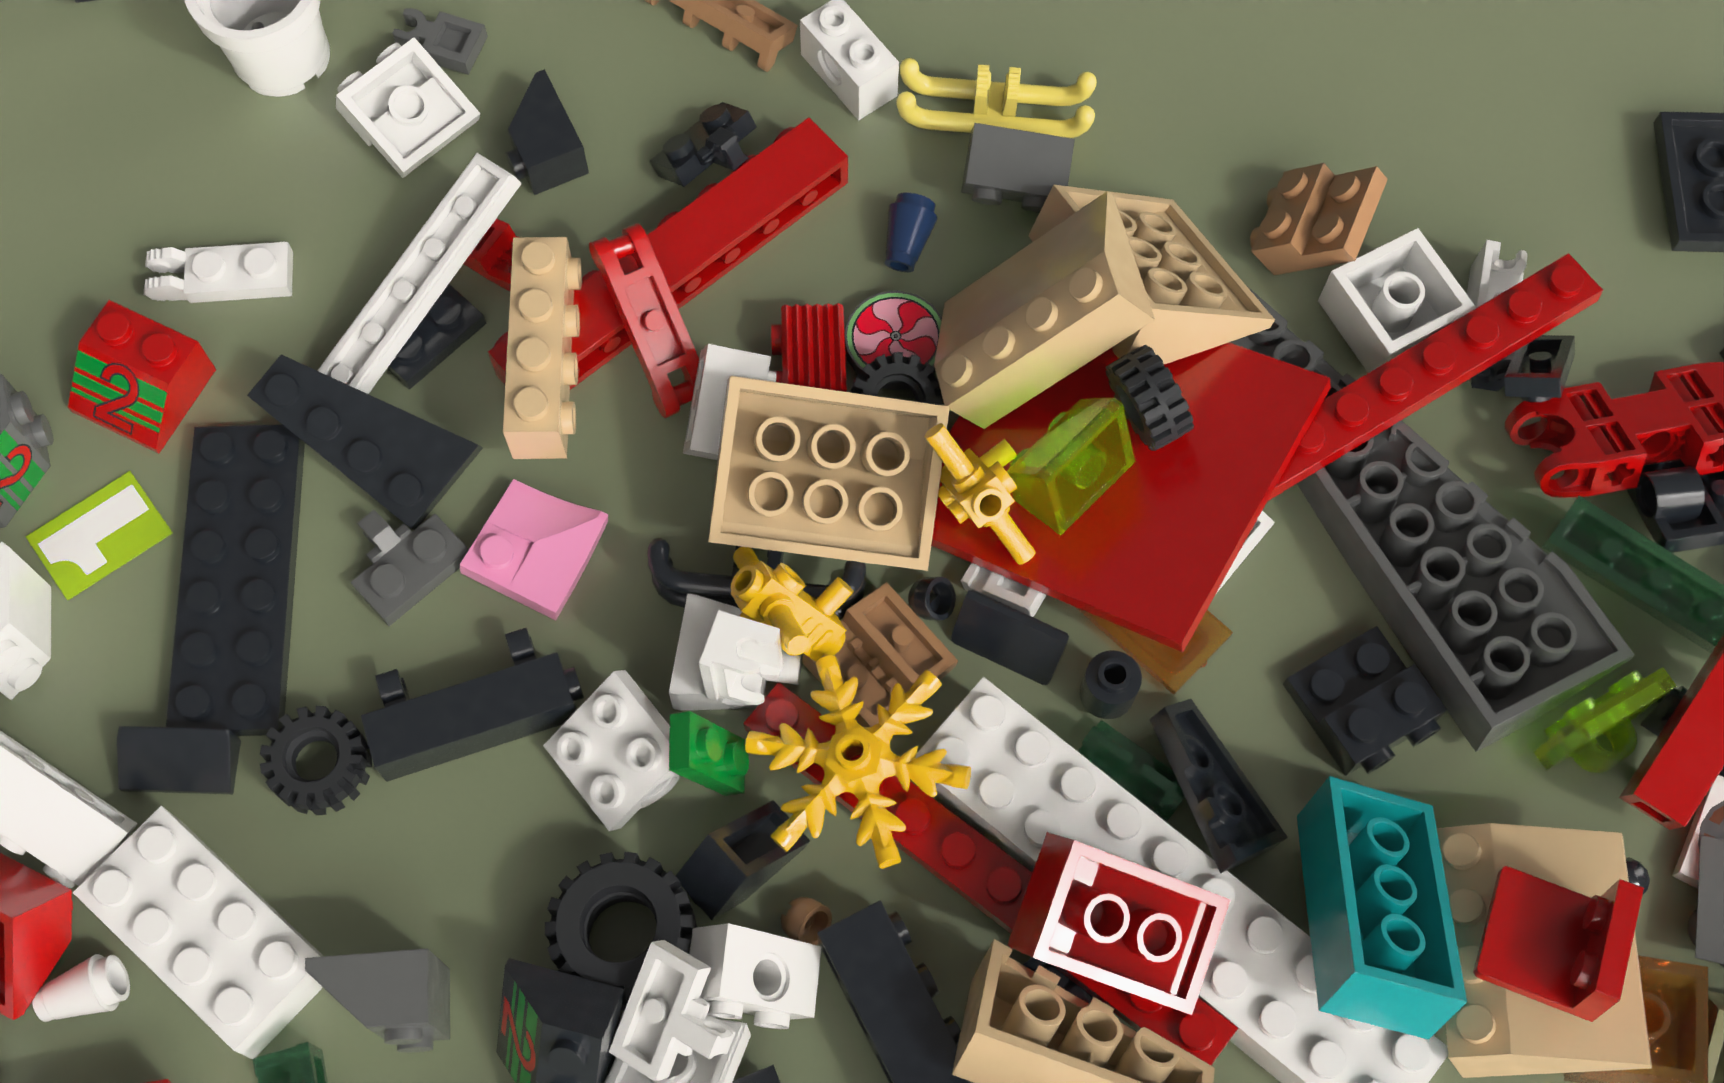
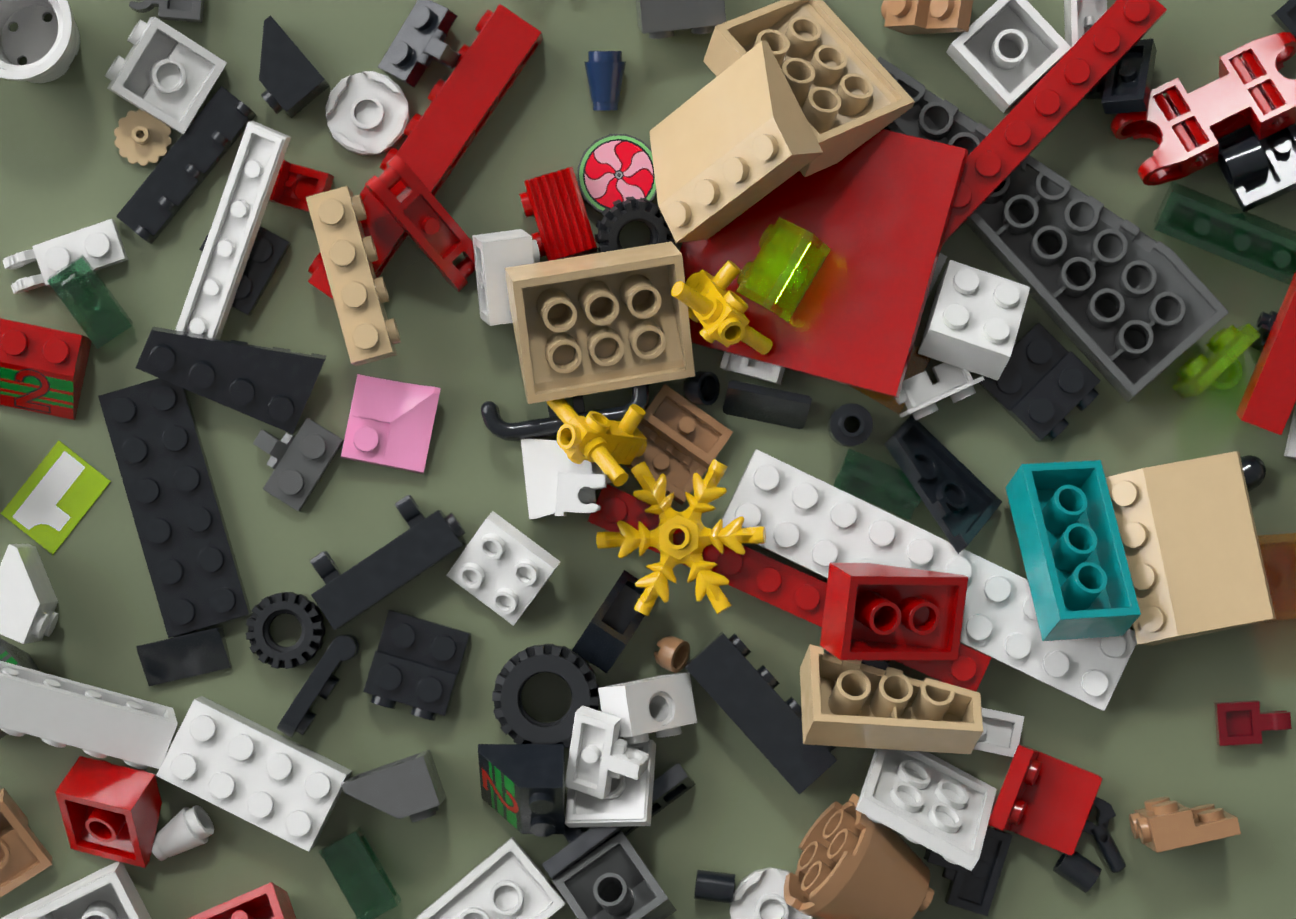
camera: 10 degrees left, 20 degrees up
(226, 320) = (90, 301): none -> clear green hinge
(331, 839) = (319, 684): none -> black plate
(357, 173) = (142, 138): none -> tan piece
(383, 216) = (186, 165): none -> black hinge
(467, 850) = (416, 665): none -> black plate
(619, 197) = (367, 113): none -> white tile
(707, 754) = (571, 557): green plate -> none
(1149, 397) = (831, 205): black tyre -> none
(1253, 669) = (921, 395): none -> white hinge
(1296, 594) = (974, 320): none -> white brick
(1558, 942) = (1196, 552): red bracket -> none

